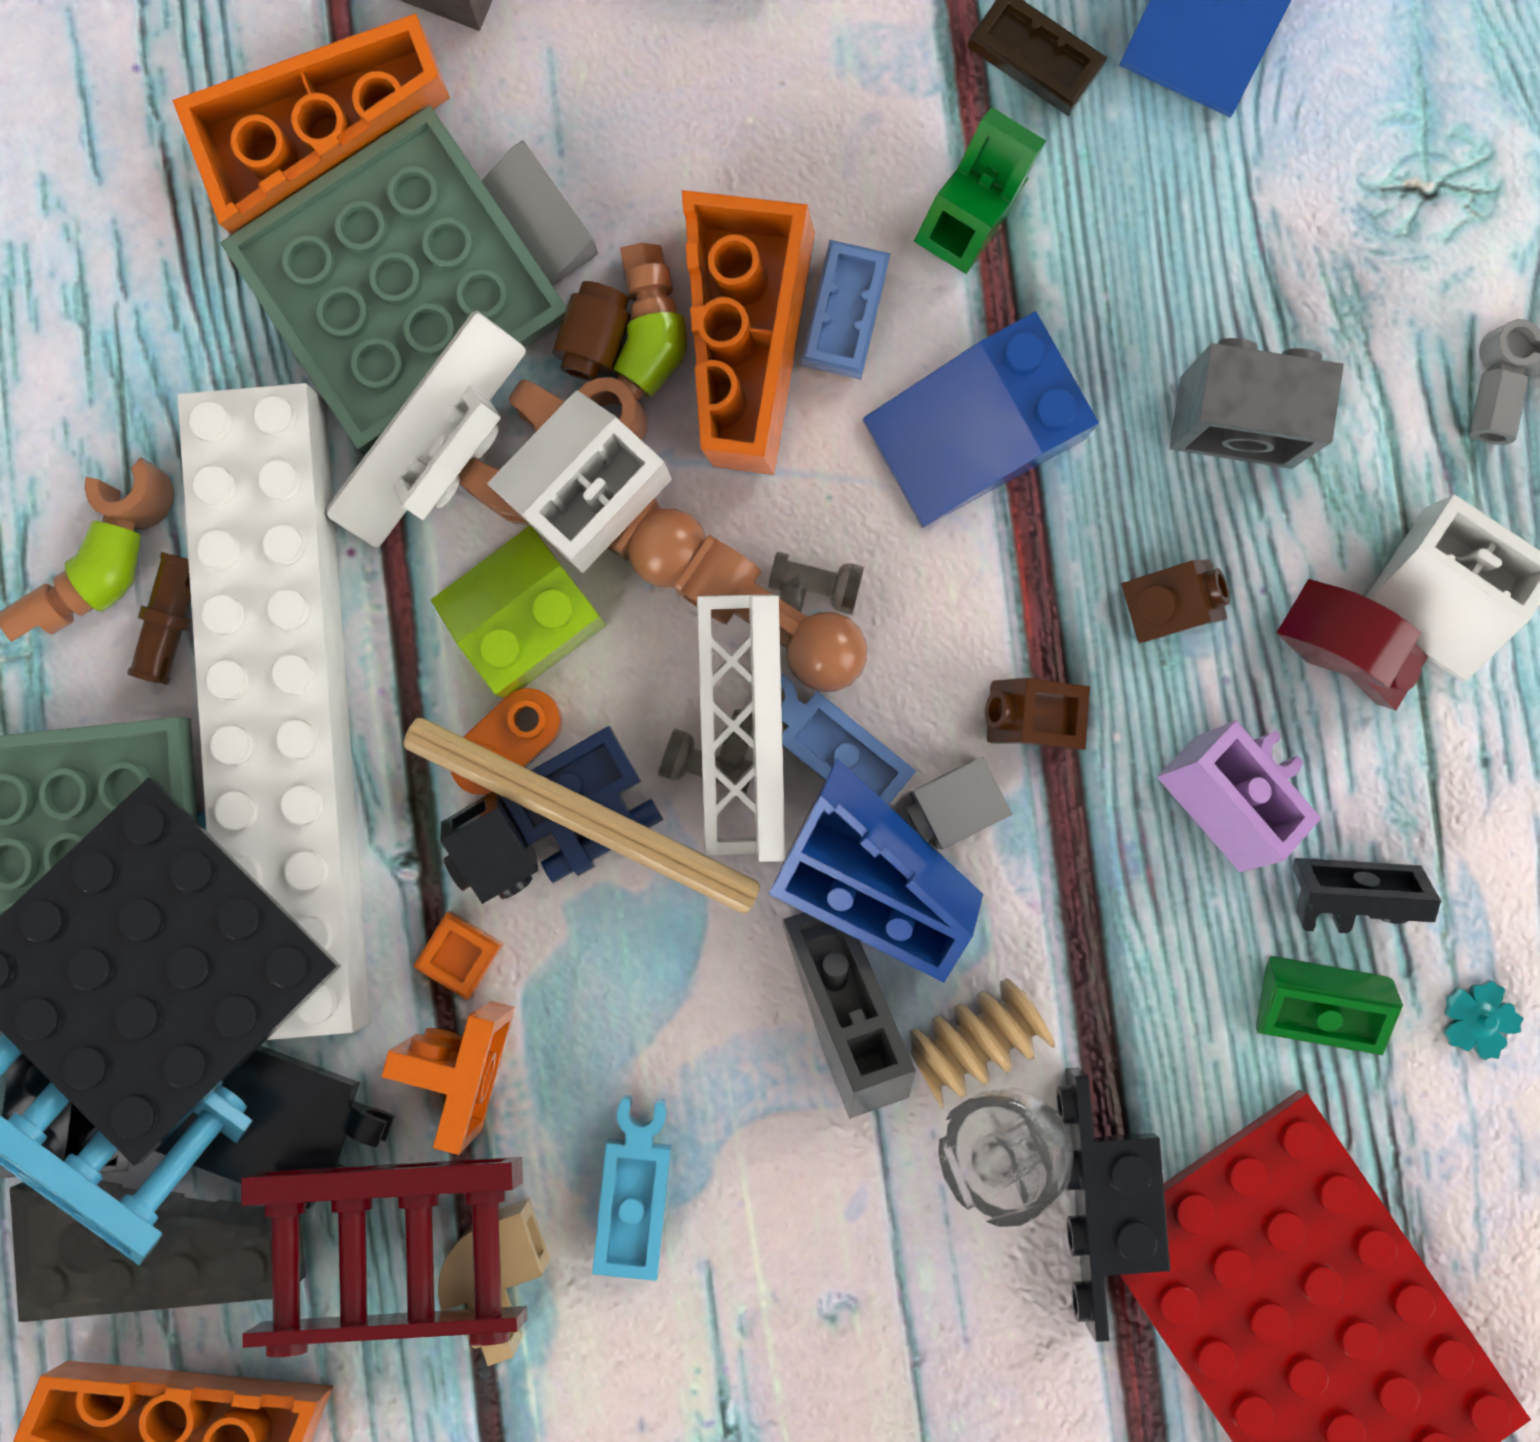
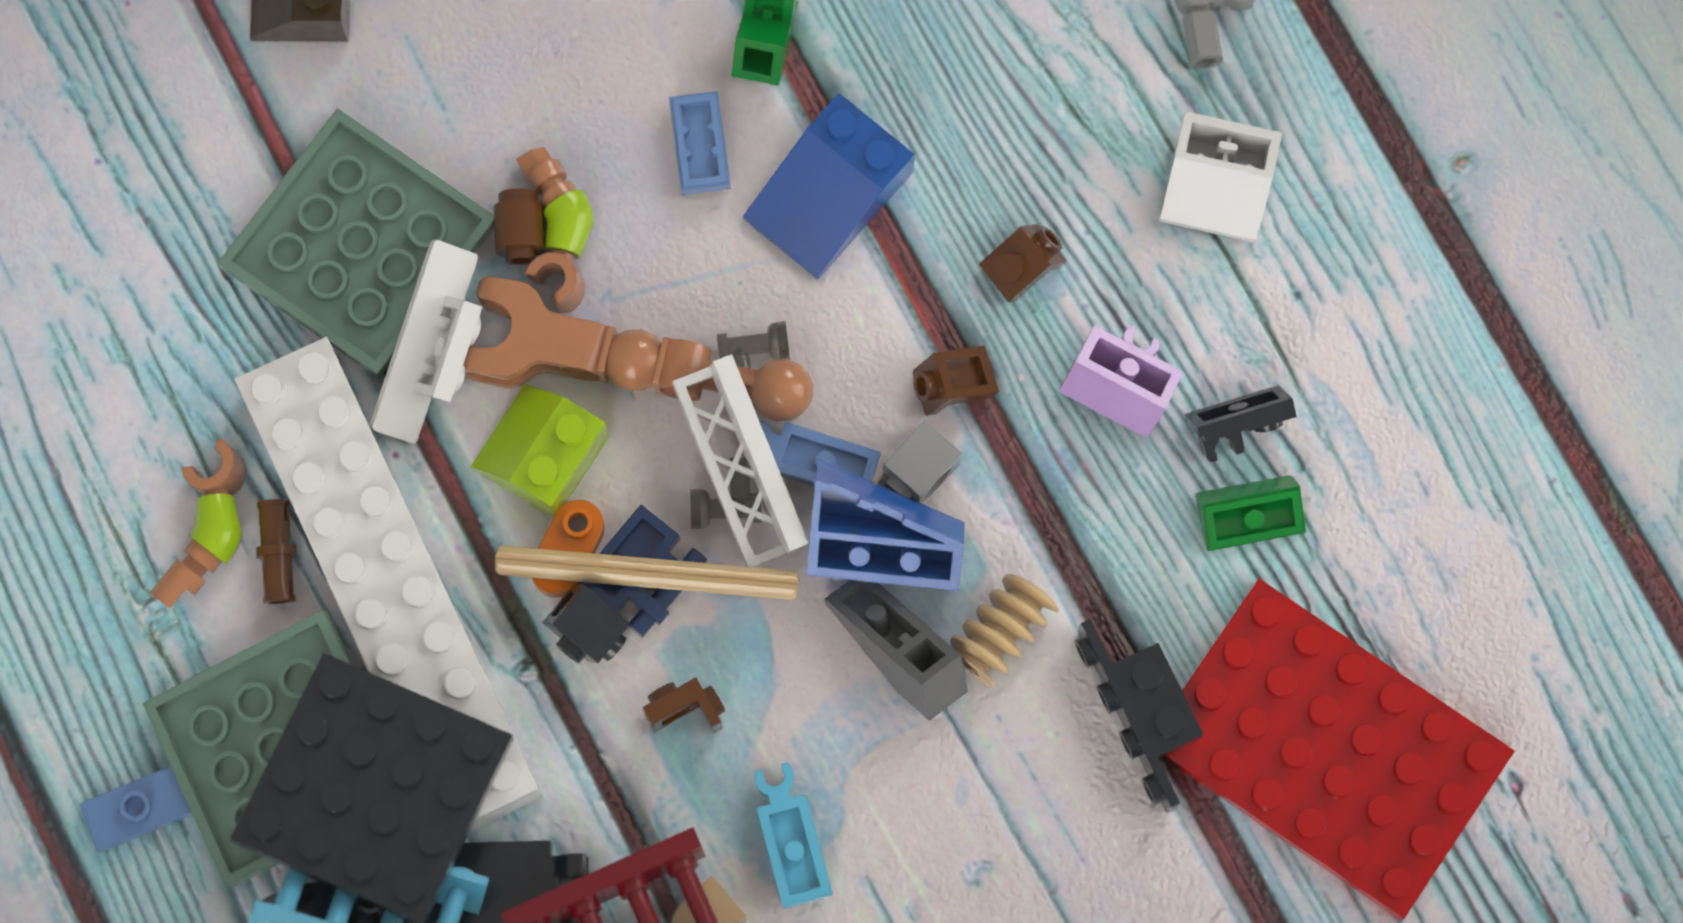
camera: 25 degrees left, 10 degrees down
(305, 115) = (248, 152): orange wedge -> none
(457, 1067) = (611, 789): orange bracket -> none
(458, 955) = (591, 718): orange tile -> none
(539, 213) = (447, 155): light grey slope -> none
(555, 978) = (673, 702): none -> reddish brown bracket
(581, 479) = (557, 328): white slope -> none
(746, 312) = (629, 170): orange wedge -> none
(1006, 1155) = (1051, 697): clear cylinder -> none
(1256, 404) = (1022, 101): flat silver brick -> none
(1355, 639) = (1163, 238): dark red brick -> none
(1480, 1019) = (1366, 480): teal plant -> none

